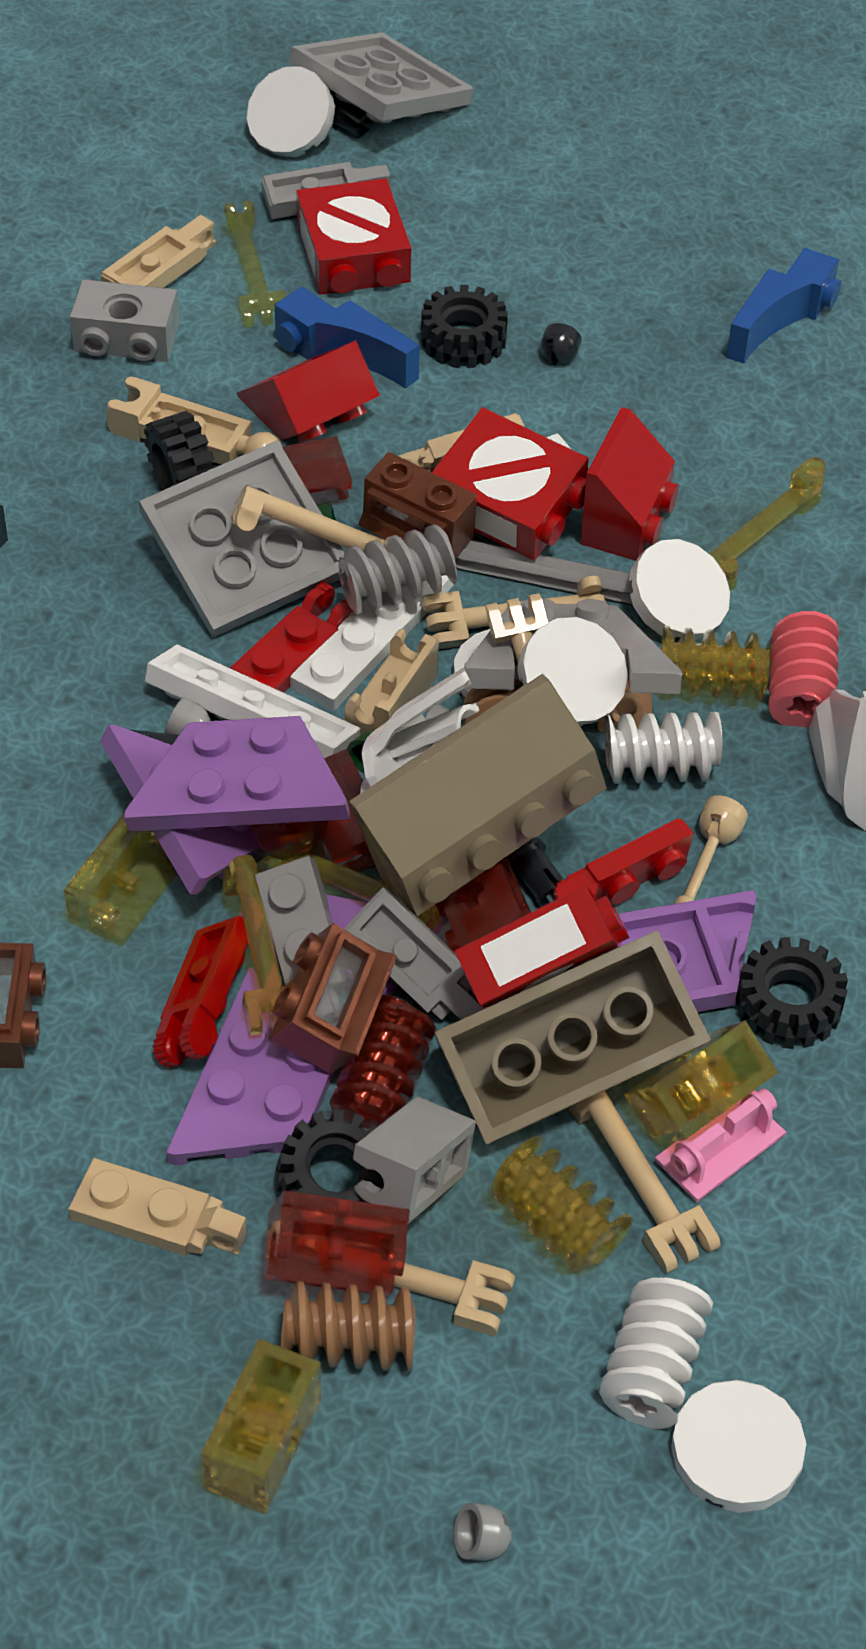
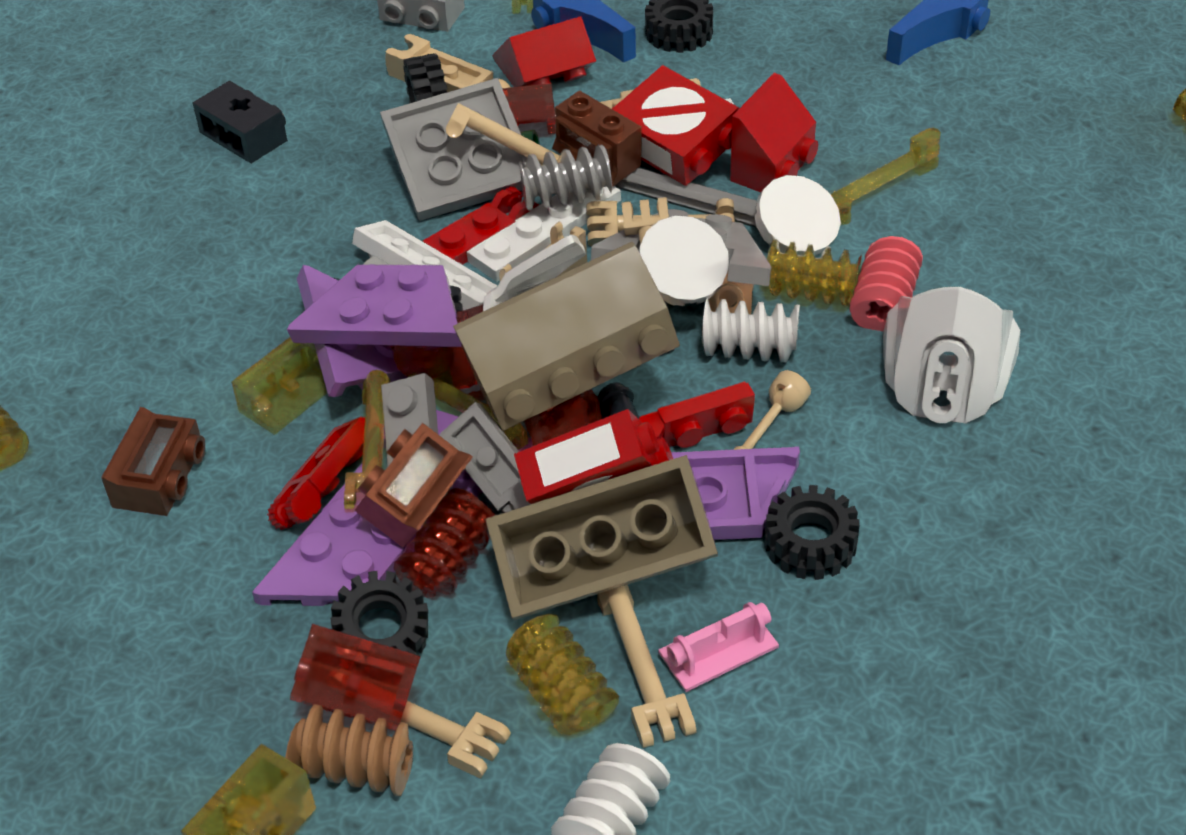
camera: 15 degrees right, 5 degrees down
(155, 1211) = (229, 637): tan hinge -> none
(417, 1154) = (447, 619): light grey hinge -> none
(560, 343) = (752, 38): black hinge -> none
(701, 1084) = (708, 591): clear yellow brick -> none

